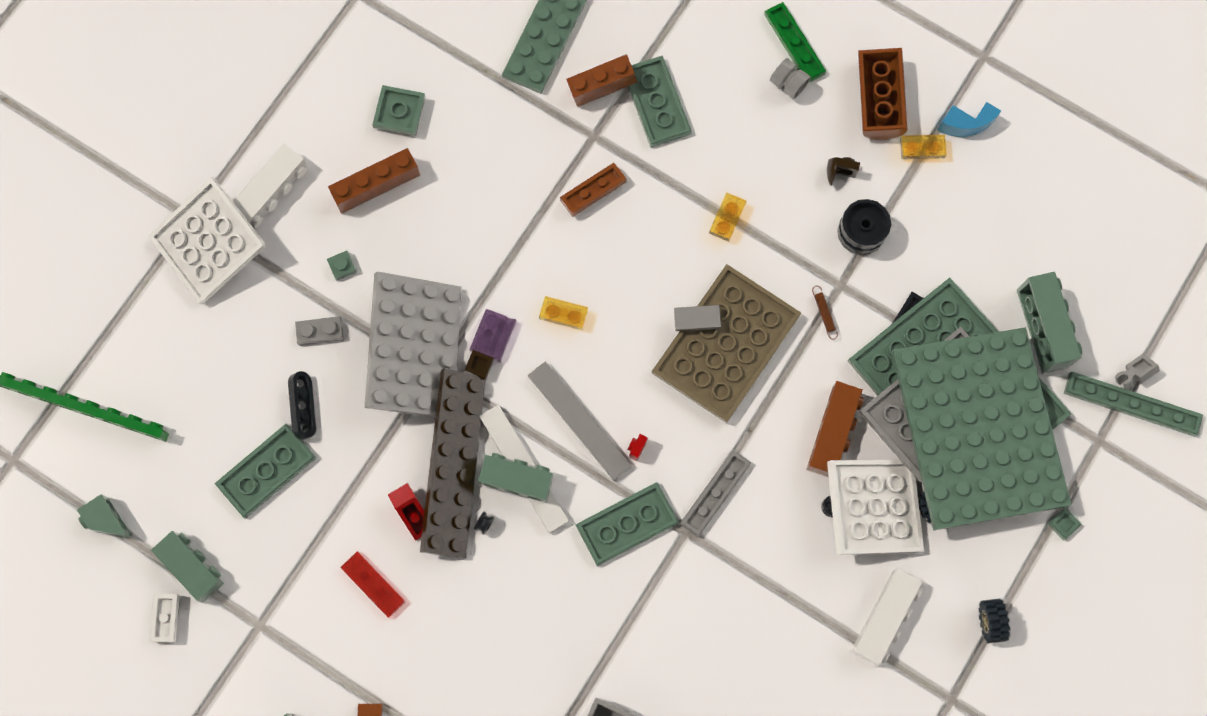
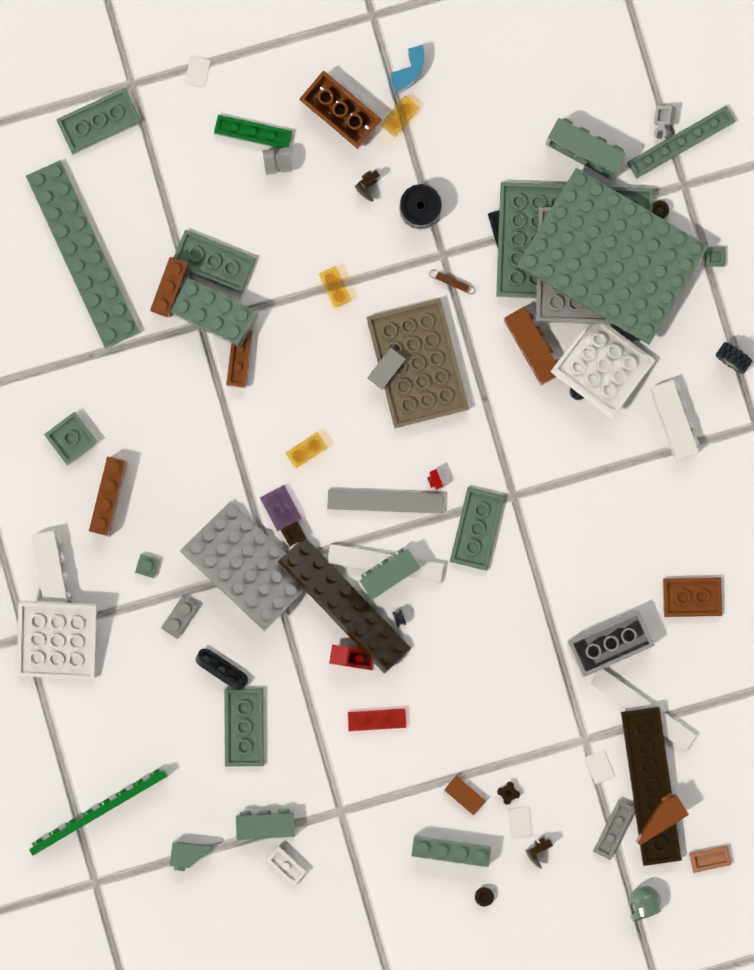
camera: 50 degrees left, 10 degrees up
(613, 134) = (214, 313): none -> sand green brick
(715, 493) = (506, 456): light grey tile -> none
(1064, 434) = (660, 203): none -> dark brown plate

